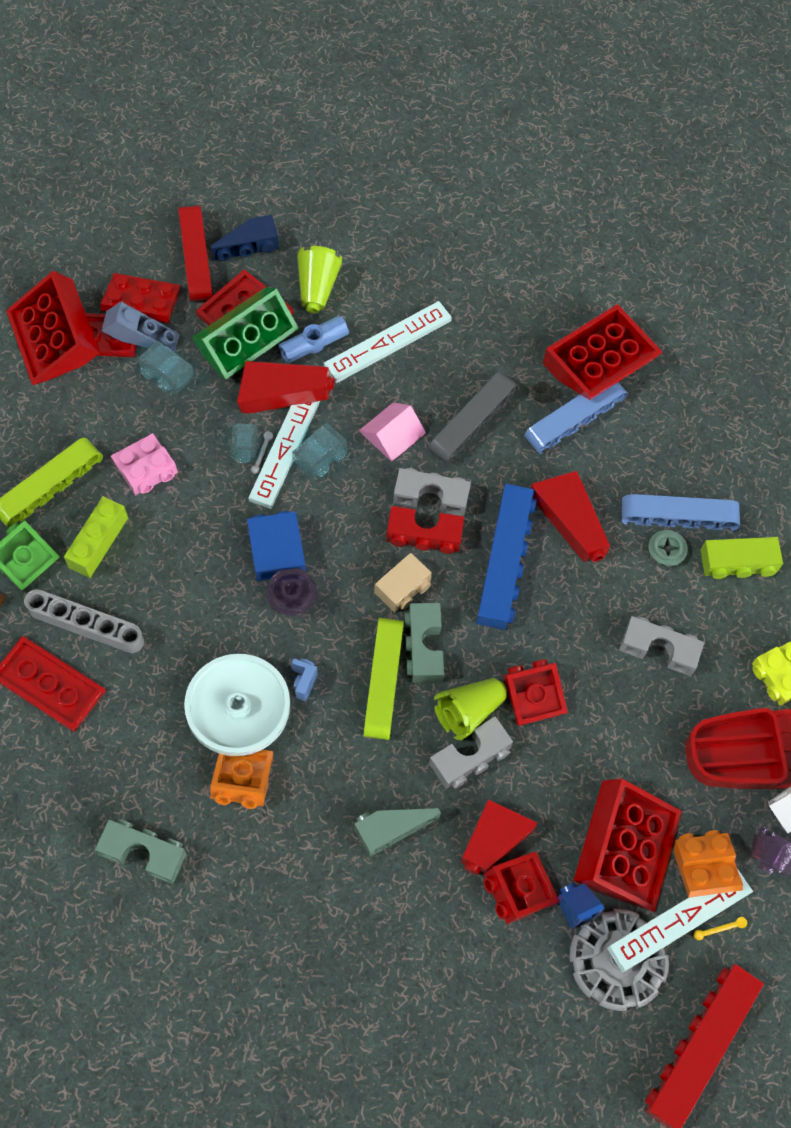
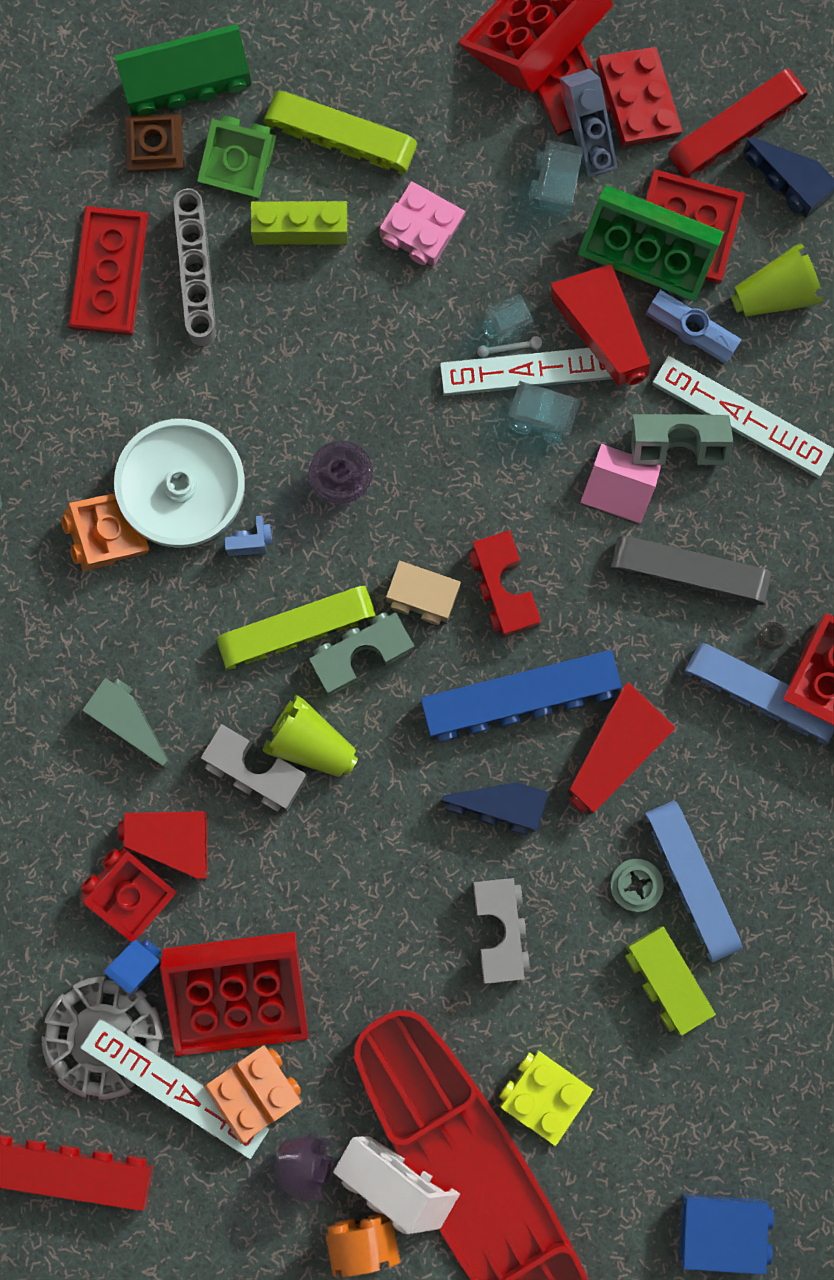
camera: 65 degrees right, 15 degrees up
(275, 544) = (395, 424): blue brick -> none
(391, 364) = (705, 435): none -> arch
(414, 484) = (555, 541): light grey arch -> none
(535, 692) = (364, 806): red plate -> none
(579, 594) = (509, 803): none -> dark blue slope
(741, 922) = (209, 1158): yellow hinge -> none

